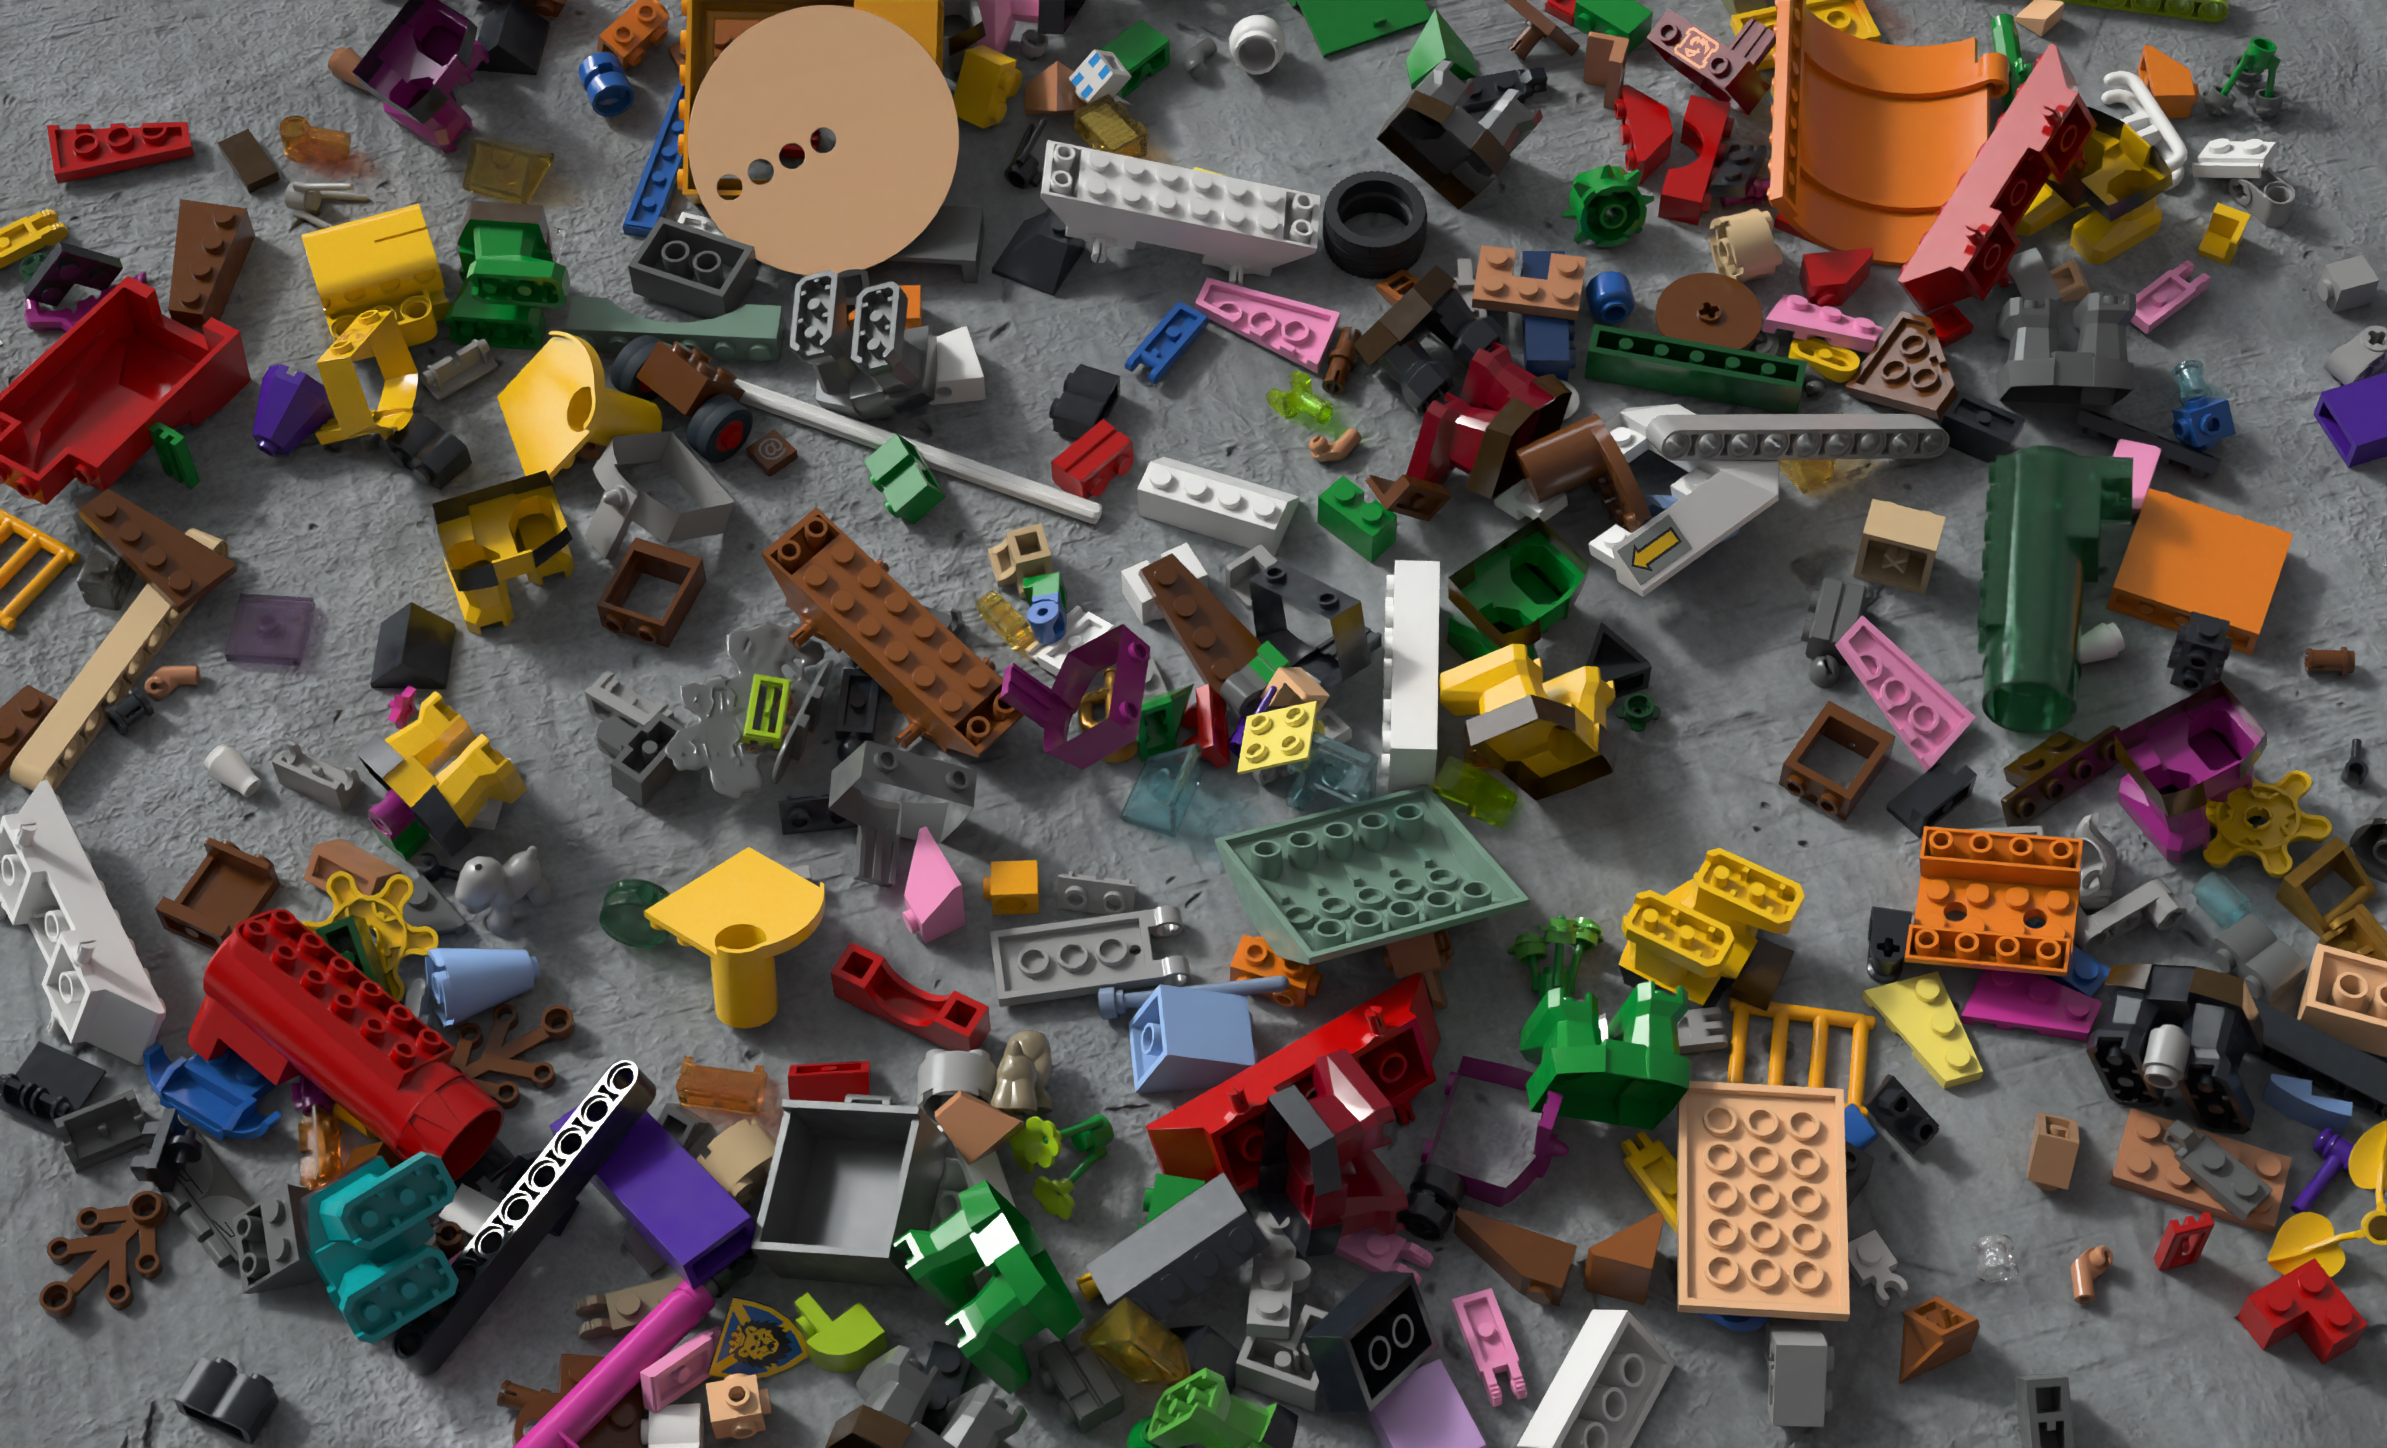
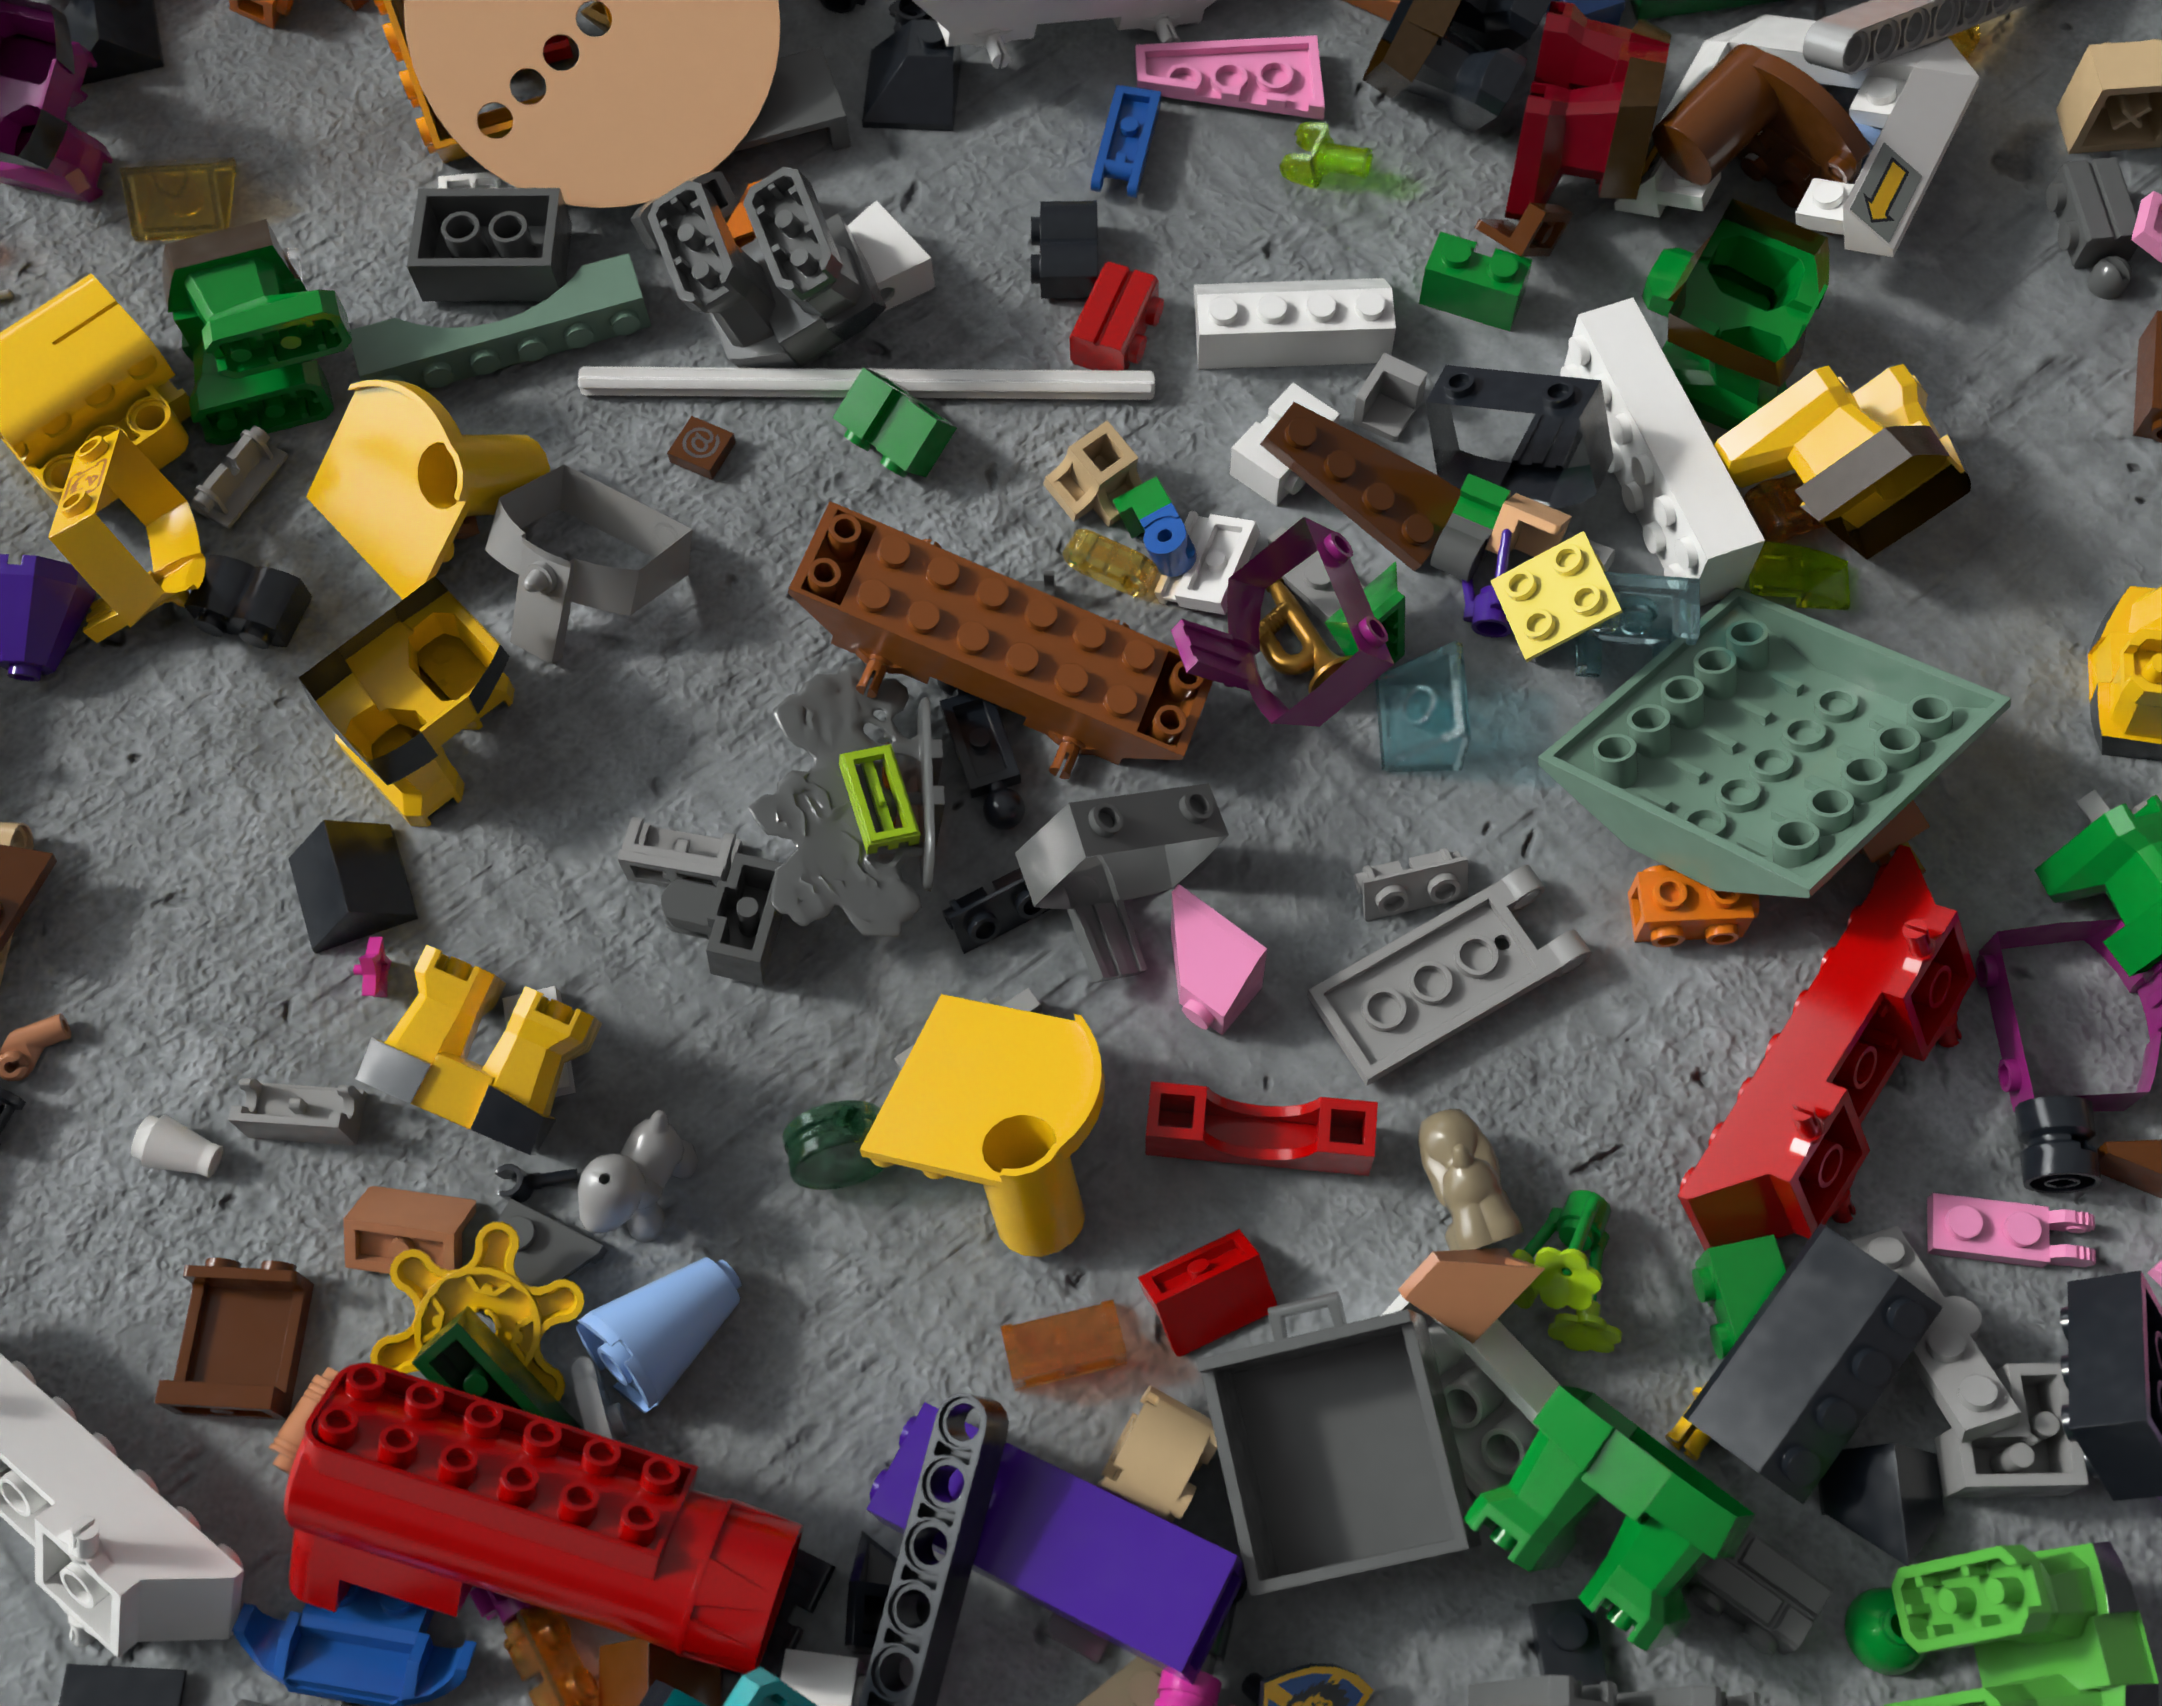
camera: 20 degrees left, 10 degrees up
(269, 629) = (138, 924): clear purple plate -> none
(397, 826) = (447, 1147): leg -> none
(500, 1058) = (738, 1426): reddish brown plant -> none
(606, 84) = (263, 46): blue wheel -> none
(659, 176) = (385, 125): blue tile -> none
(660, 563) = (636, 644): reddish brown window -> none
(682, 1124) = (1036, 1424): dark grey slope -> none
(693, 387) = (563, 394): brick -> none
(842, 1343) = (1413, 1665): lime brick -> none
(948, 1072) = (1386, 1233): light grey brick -> none
(1013, 887) = (1306, 916): light orange brick -> none
(1116, 1002) = (1517, 1023): sand blue piece -> none
(1138, 1346) = (1831, 1512): clear yellow slope -> none
(1190, 1039) = (1640, 1042): light blue slope -> none
(1210, 719) = (1426, 596): red tile -> none
(1322, 1162) = (1935, 1148): dark red piece -> none
(1334, 451) = (1396, 207): nougat arm -> none
(1341, 361) = (1346, 94): reddish brown pin -> none
(1531, 949) = (2035, 722): plant -> none
(1619, 663) = (1880, 345): black slope -> none
(1638, 702) = (1940, 399): dark green plate -> none

